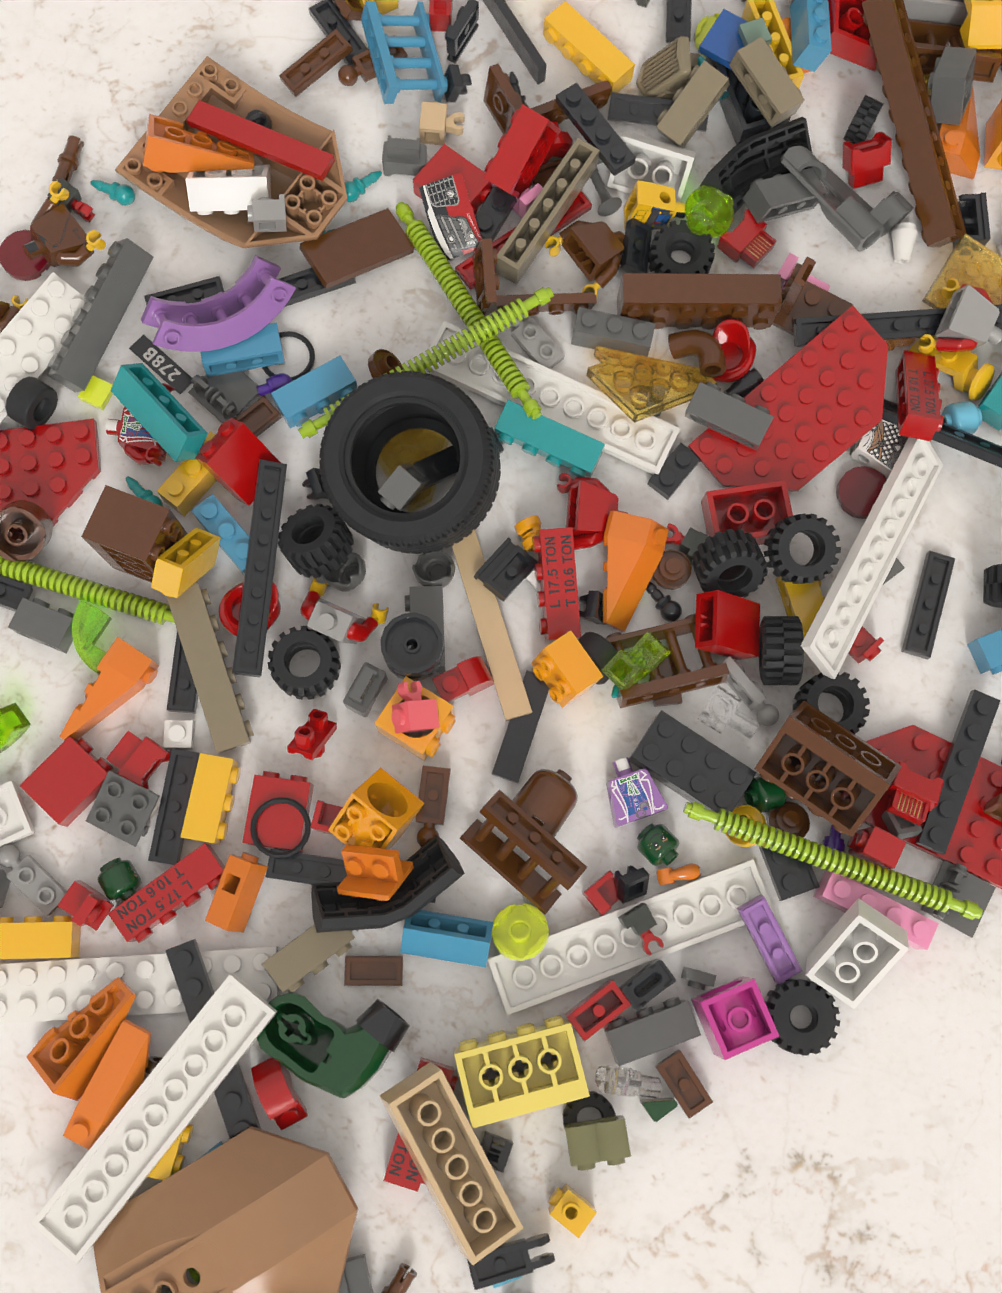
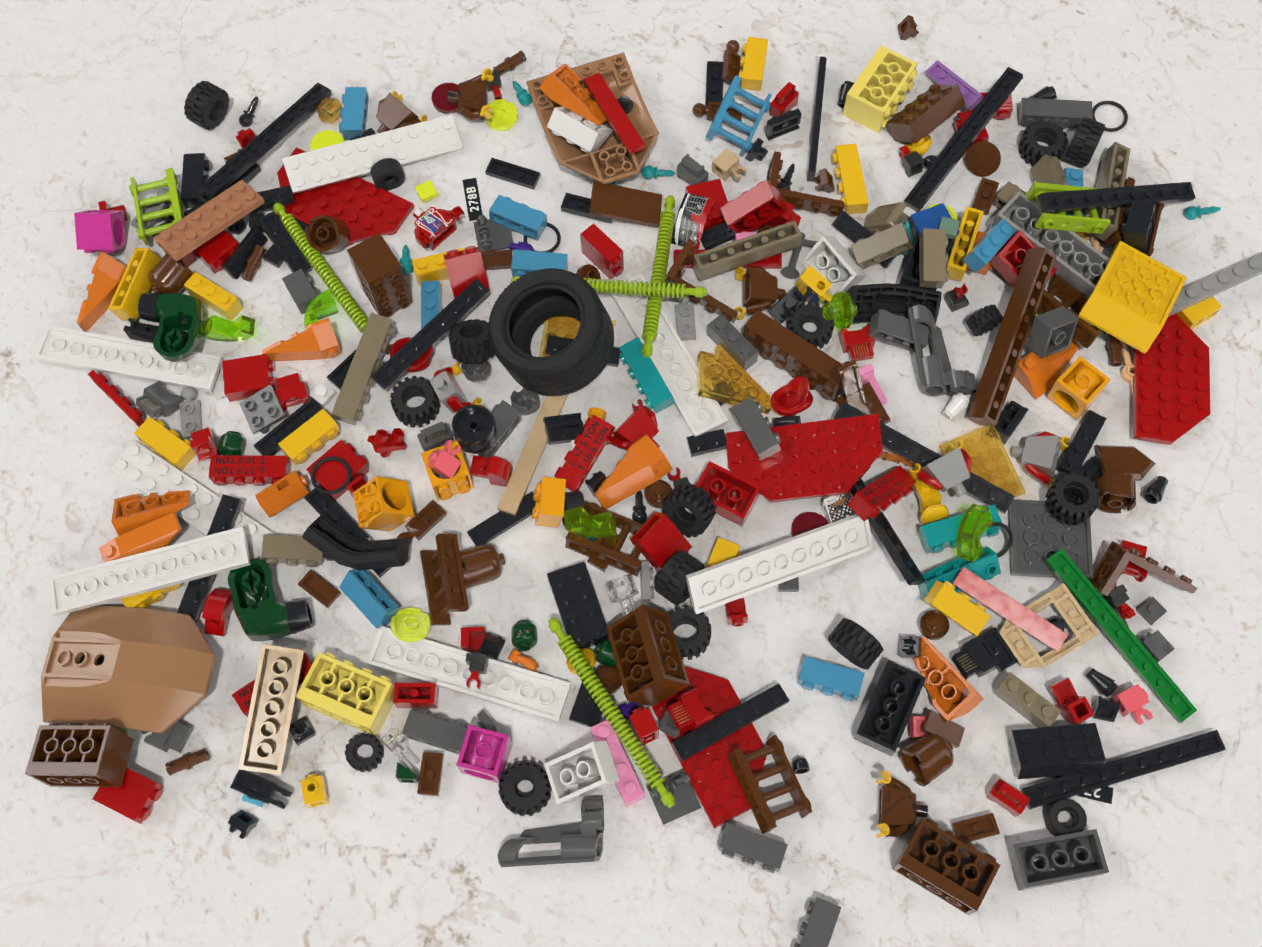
camera: 45 degrees right, 10 degrees down
(100, 315) = (459, 152): dark grey brick -> none
(113, 227) = (503, 115): none -> neon yellow tile
(158, 412) = (443, 218): teal brick -> none
(185, 562) = (393, 303): yellow brick -> none
(221, 317) = (519, 193): medium lavender fence -> none
(268, 214) = (584, 153): light grey brick -> none
(316, 62) = (686, 92): reddish brown tile -> none
(372, 872) = (356, 528): orange bracket -> none
(379, 324) = (602, 251): none -> red brick
(403, 486) = (537, 339): dark grey brick -> none
(561, 69) = (826, 181): none -> reddish brown tile
(595, 129) = (810, 223): black plate -> none
(597, 1141) = (355, 760): olive brick -> none
(632, 794) = (532, 599): torso -> none
(647, 984) = (452, 700): black piece -> none
(700, 345) = (776, 383): reddish brown cylinder -> none
(769, 939) = (543, 732): medium lavender tile -> none
(813, 112) = (956, 298): none -> pearl dark grey piece
(823, 543) = (727, 512): black tyre -> none
(867, 160) = (968, 343): red piece -> none
(902, 1024) = (578, 841): none -> dark grey panel
(928, 605) = (797, 621): black tile -> none
(963, 416) = (905, 528): medium azure head -> none

